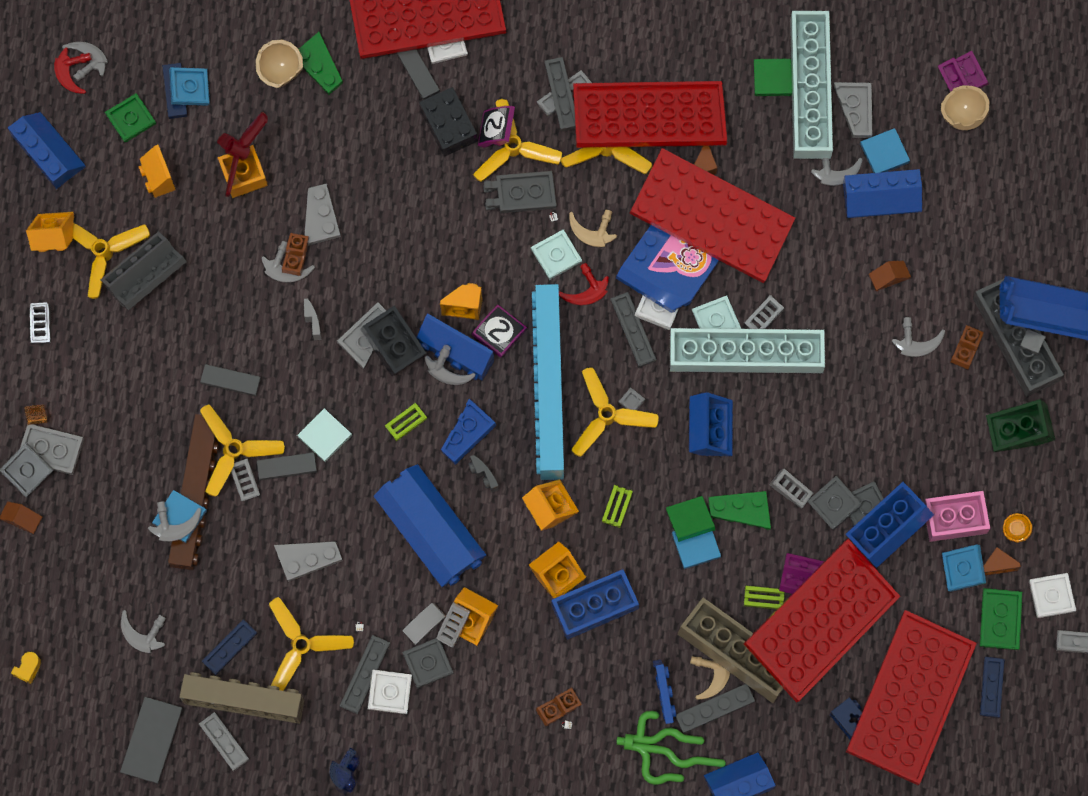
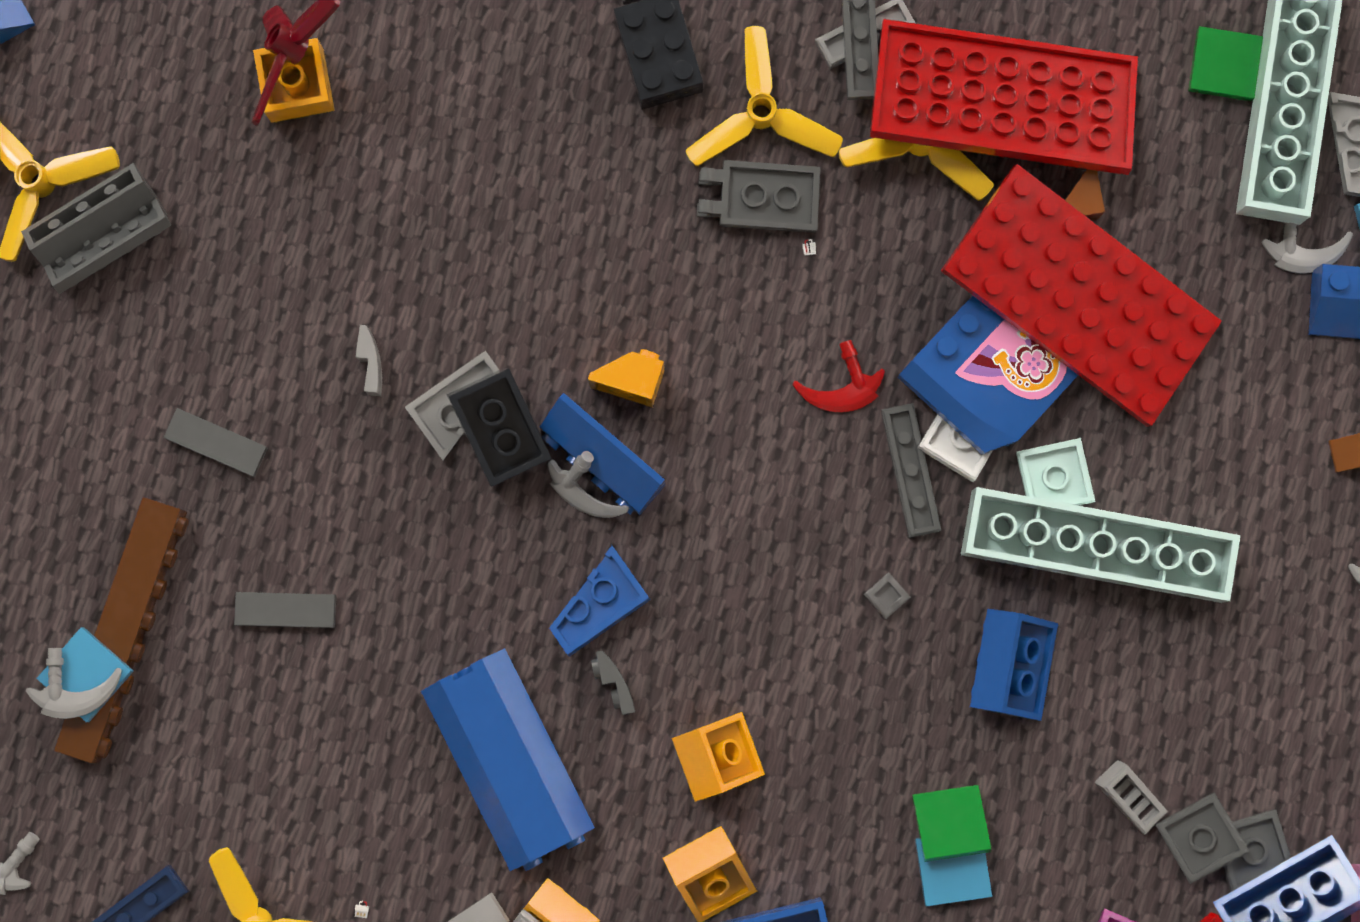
camera: 10 degrees right, 10 degrees up
(157, 173) = (149, 57): light orange slope -> none
(245, 462) = (219, 604): light grey slope -> none
(247, 449) = (182, 590): yellow piece -> none
(274, 269) = (329, 268): light grey piece -> none
(295, 254) = (361, 241): dark orange slope -> none
(306, 557) = (292, 776): light grey wing -> none
(320, 216) = (414, 180): light grey wing -> none
(324, 435) = (357, 566): light aqua tile -> none
(393, 431) = (506, 577): lime tile -> none
(496, 126) = (739, 73): slope -> none
(499, 331) = (683, 435): slope -> none
(548, 376) = (753, 542): medium azure brick -> none
(556, 254) = (803, 315): light aqua tile -> none
(593, 238) = (868, 296): tan piece -> none
(621, 416) = (865, 622): yellow piece -> none
(622, 491) = (841, 785): lime tile -> none
(742, 508) = (1042, 817): green wing -> none
(764, 305) = (1160, 466): light grey slope -> none

